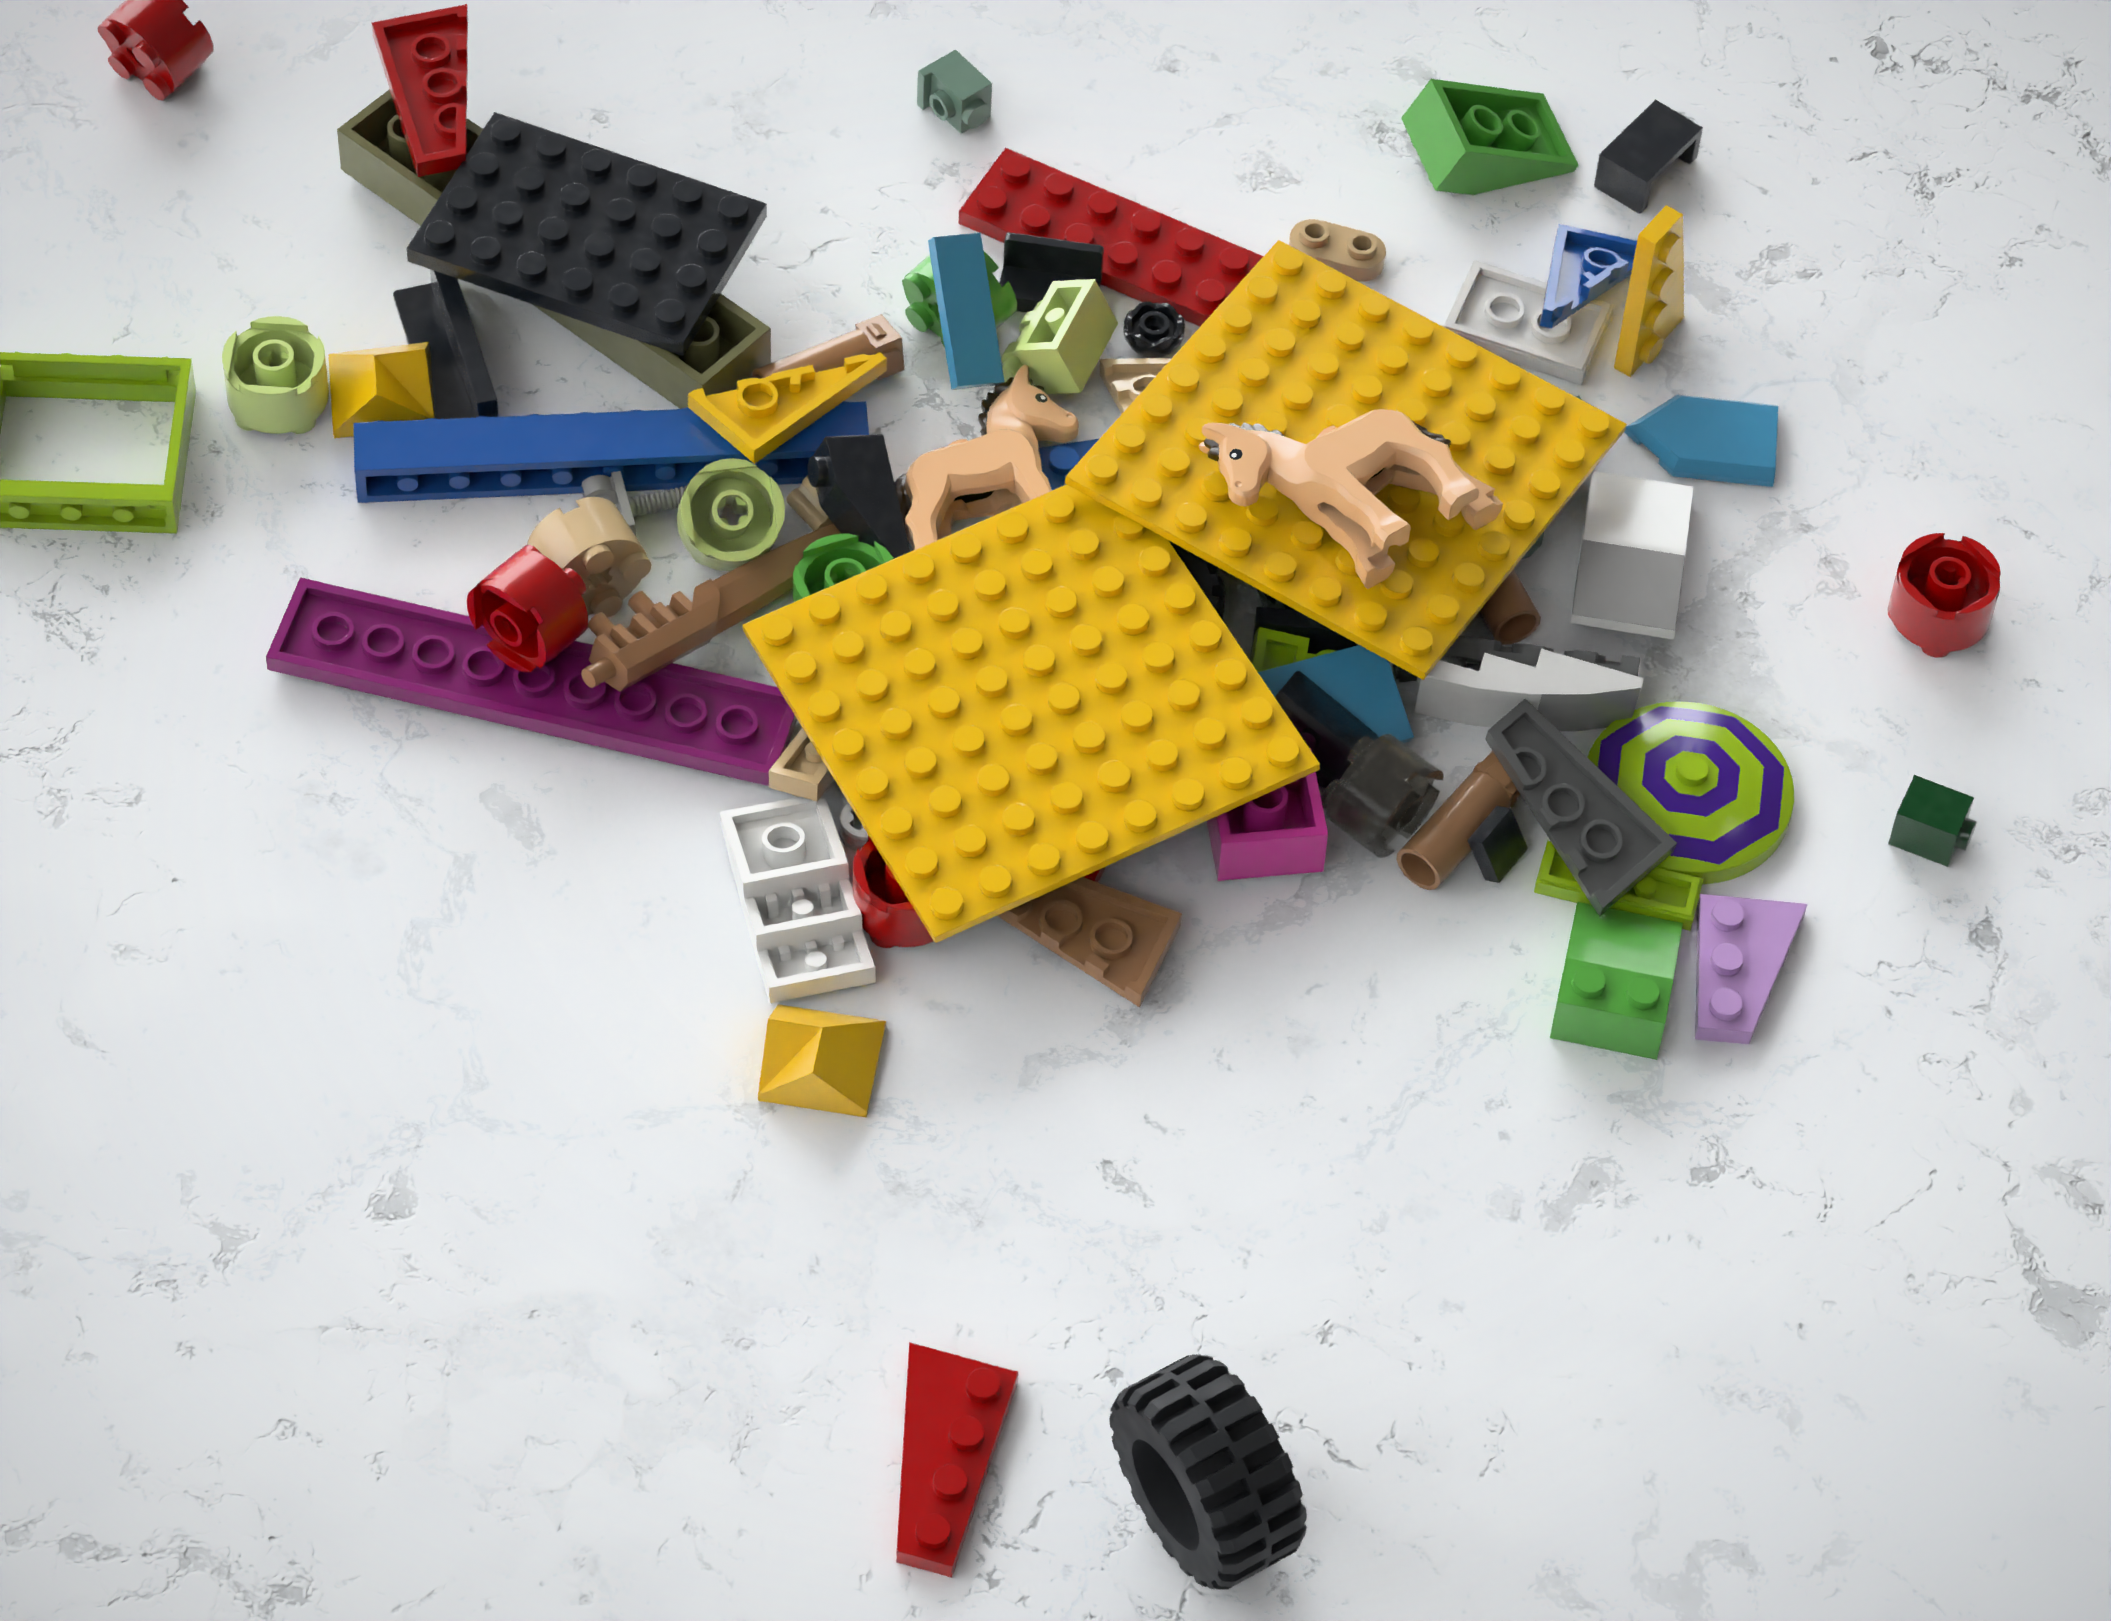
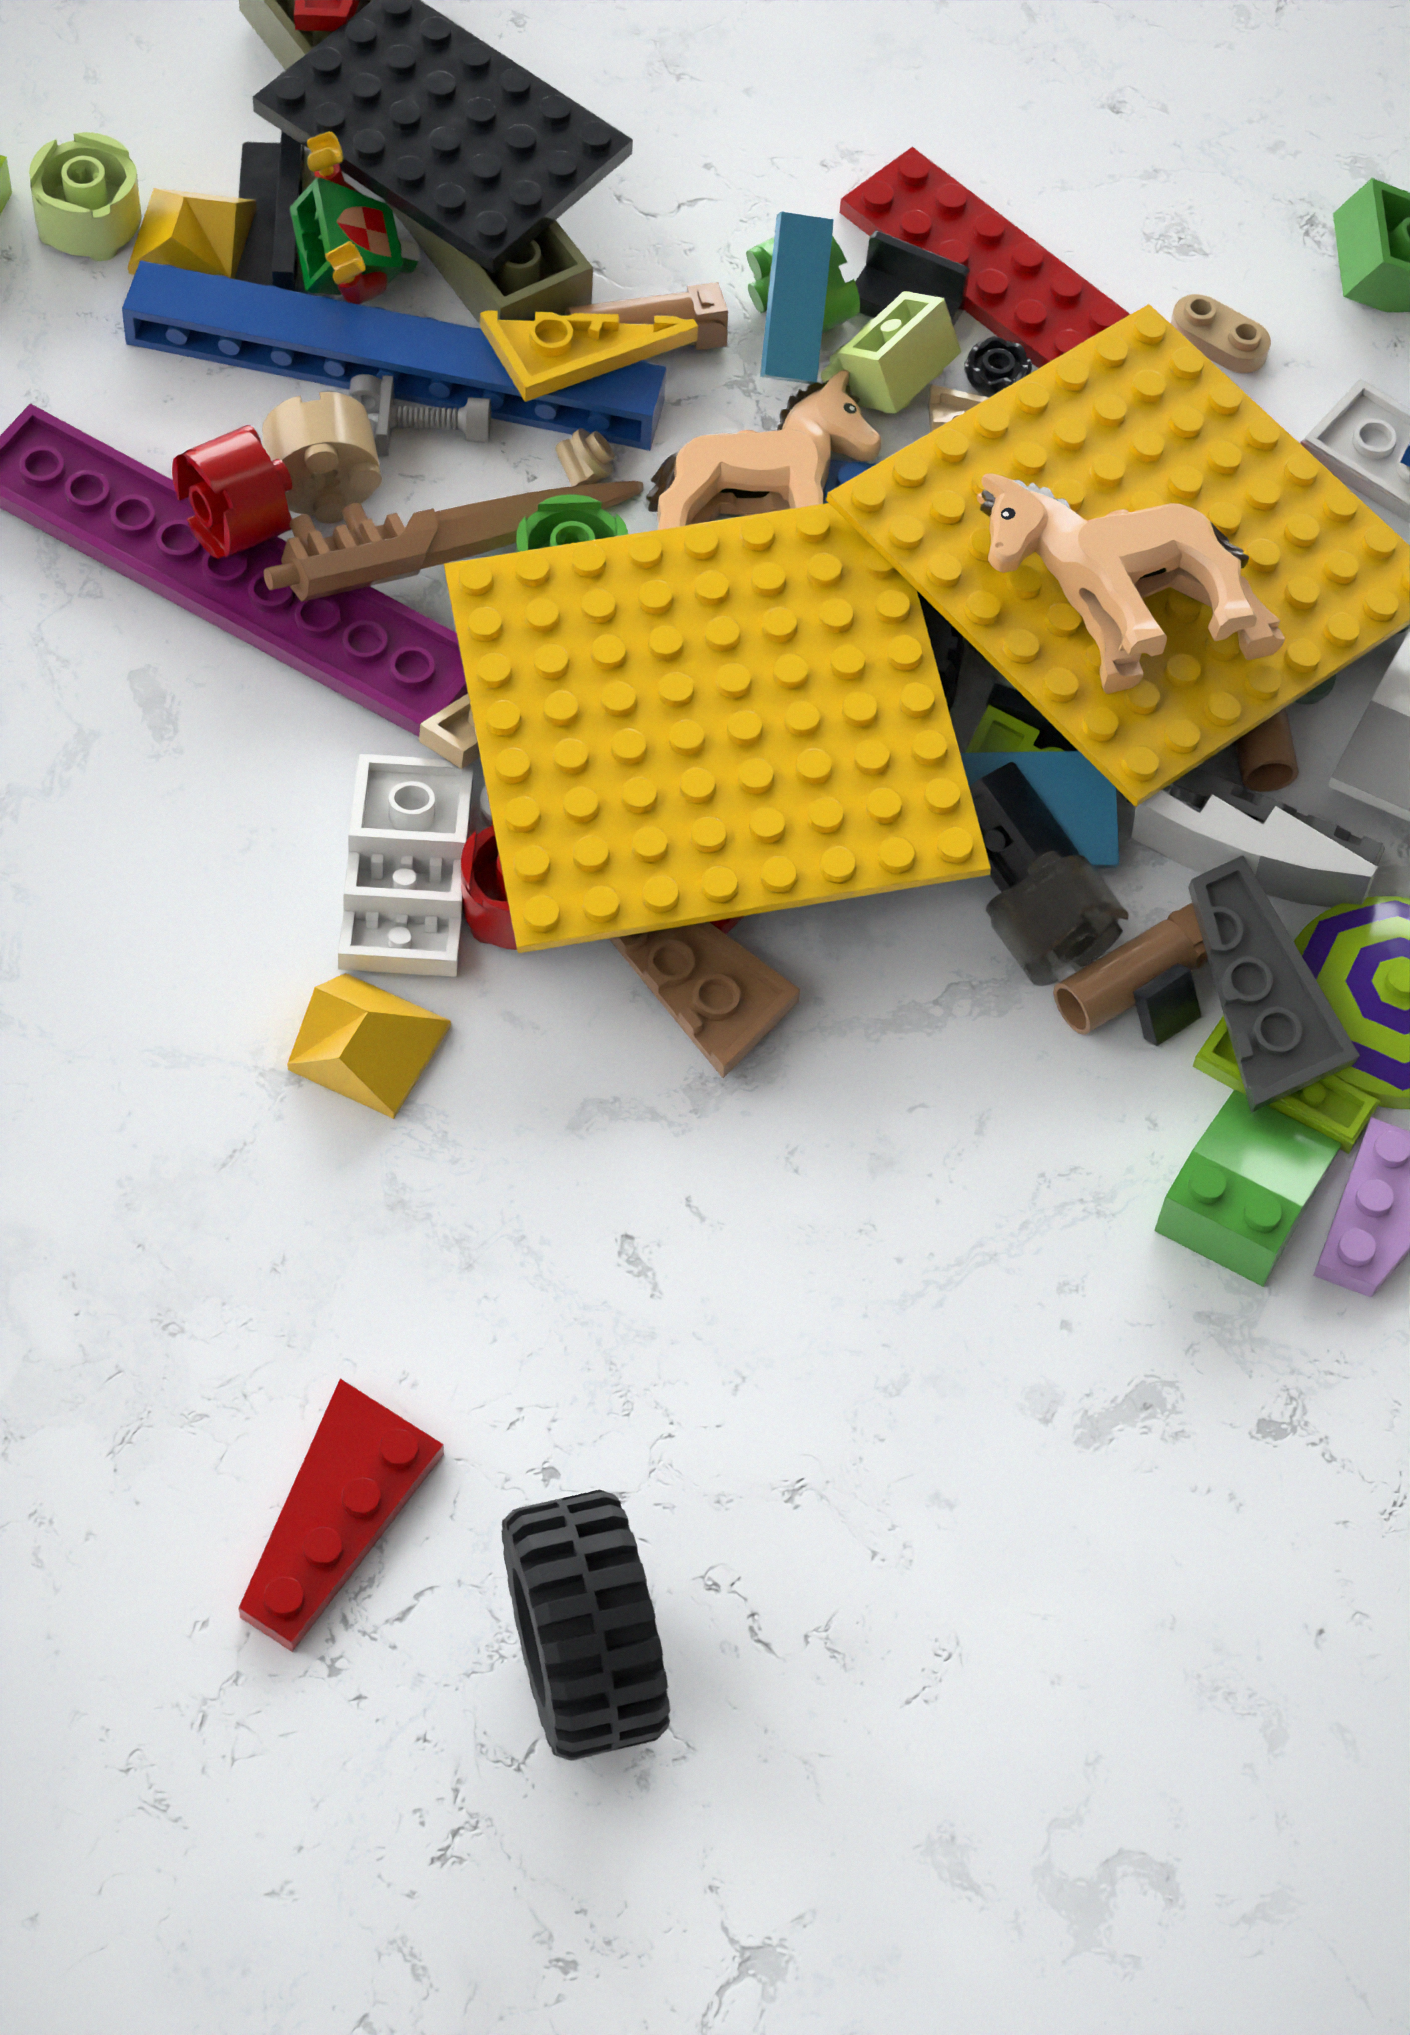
camera: 15 degrees right, 5 degrees up
(530, 352) = (343, 236): none -> torso
(749, 493) = (461, 425): yellowish green brick -> none
(859, 490) = (622, 455): black slope -> none
(955, 91) = (880, 78): sand green brick -> none
(1272, 834) = (926, 928): dark pink brick -> none

